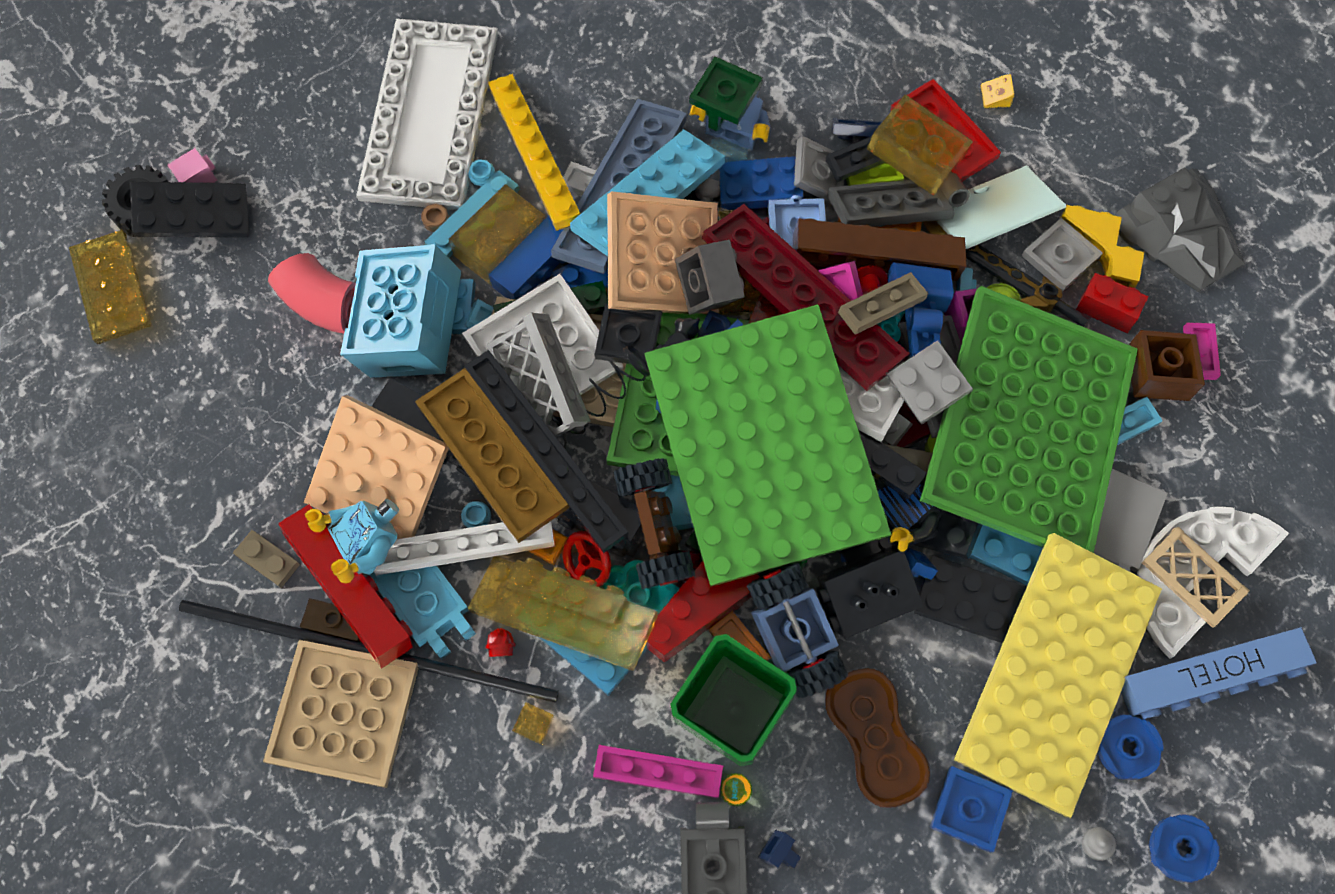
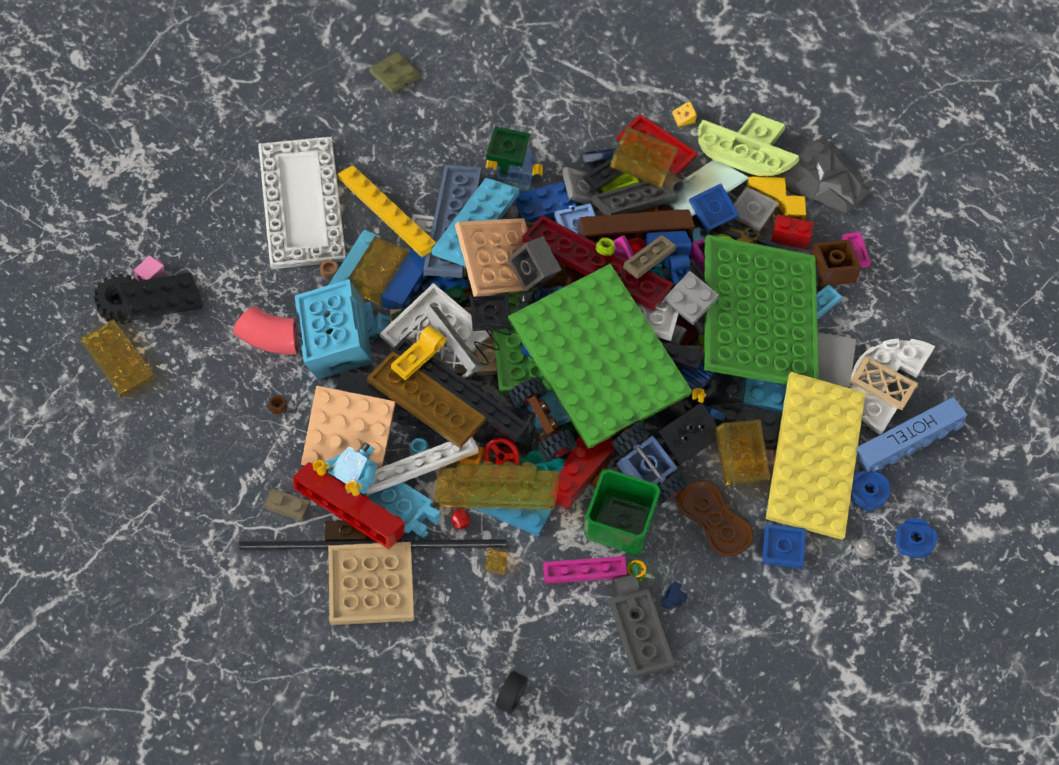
camera: 20 degrees left, 10 degrees down
(300, 397) = (277, 400): none -> reddish brown plate
(481, 172) = (352, 233): medium azure plate -> none
(497, 382) = (419, 353): none -> yellow plate
(822, 268) = (605, 247): none -> lime plate
(945, 645) = (742, 453): none -> clear yellow brick
(1003, 242) = (713, 207): none -> blue plate
(1078, 162) = (749, 148): none -> yellowish green plate

